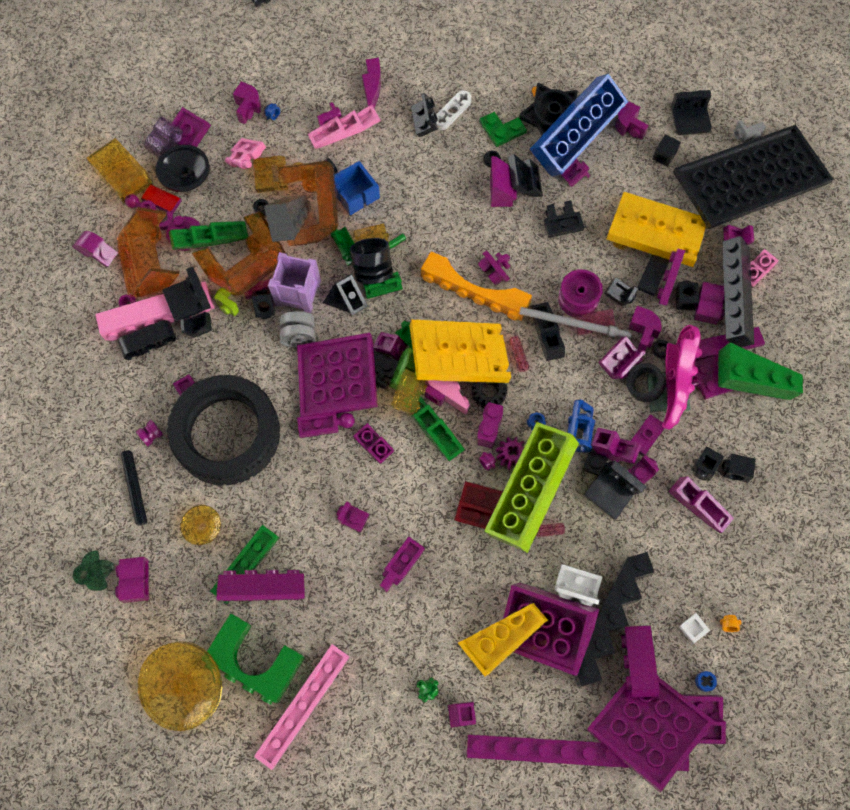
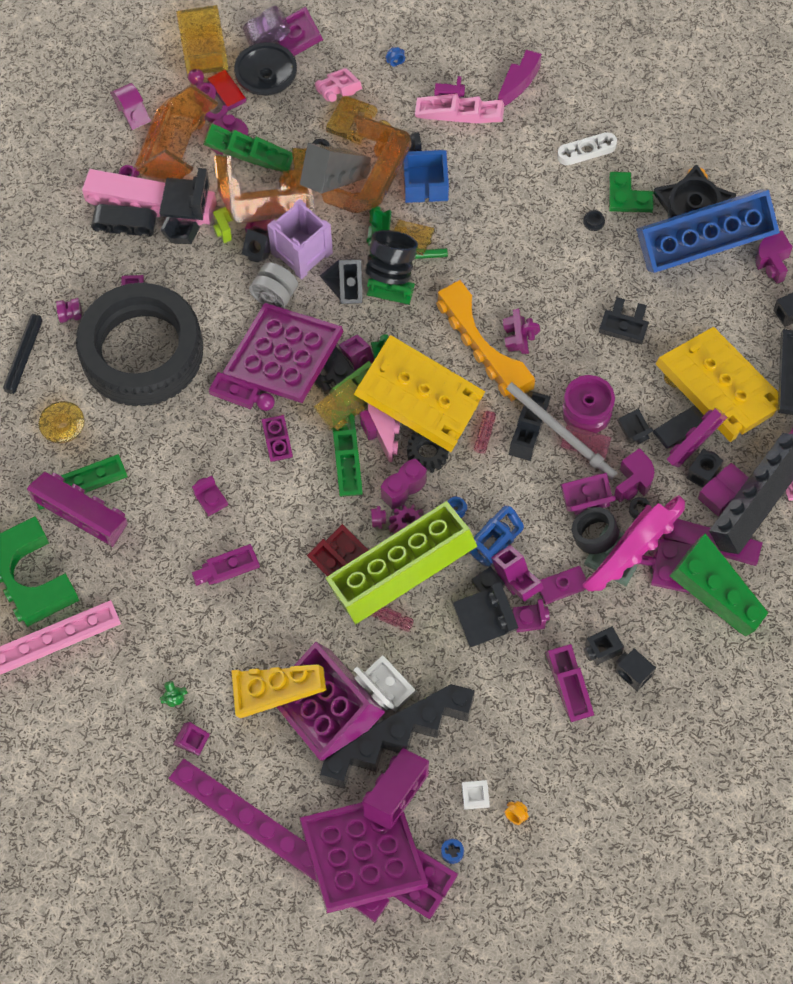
camera: 30 degrees right, 5 degrees down
(248, 100) = (377, 34): magenta brick -> none
(424, 116) = (551, 139): black bracket -> none
(500, 184) = (583, 249): magenta slope -> none
(525, 176) = (615, 256): black slope -> none
(576, 172) = (674, 279): magenta bracket -> none

